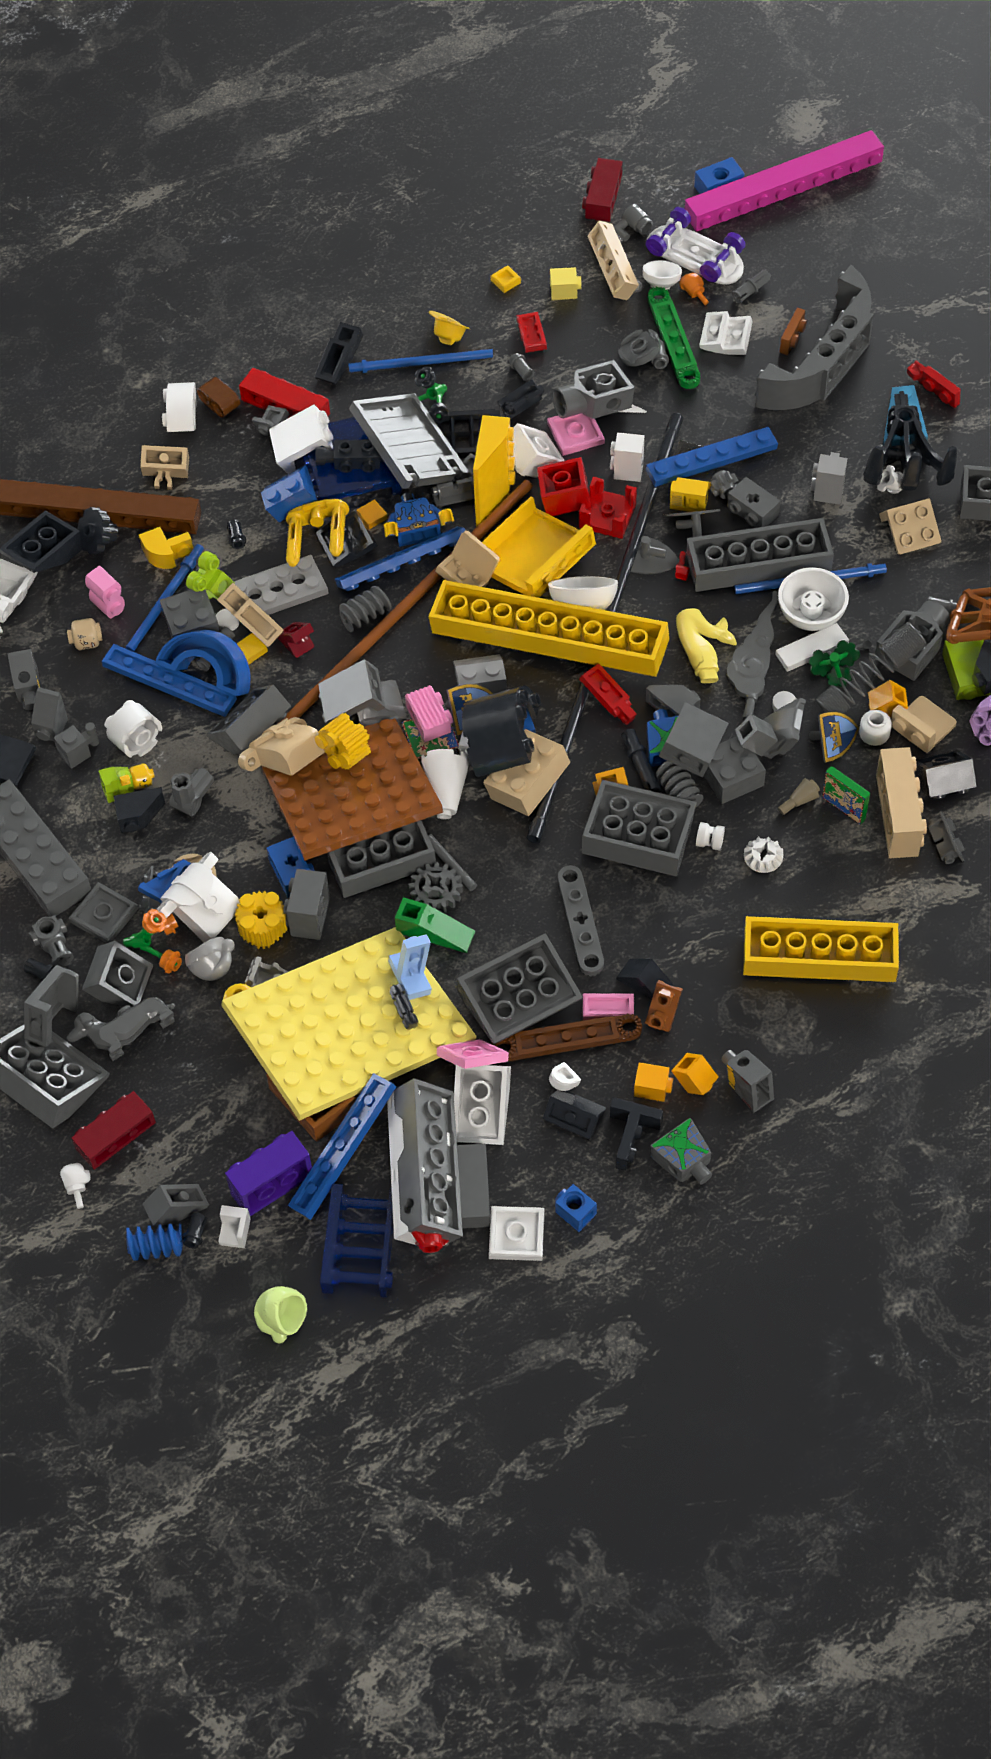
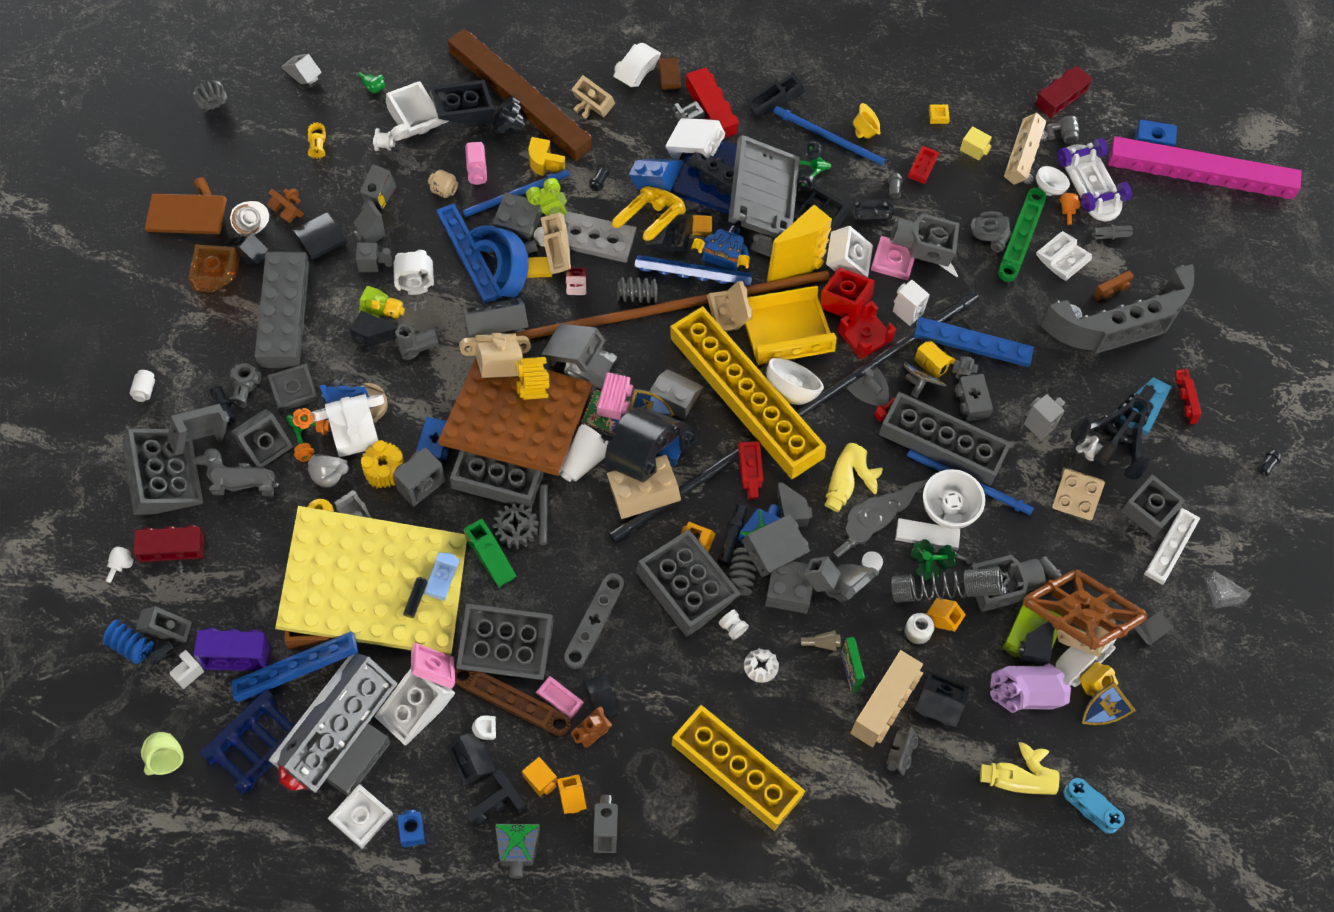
camera: 30 degrees right, 5 degrees up
(836, 734) = (885, 613): shield -> none
(922, 723) = (959, 649): tan bracket -> none

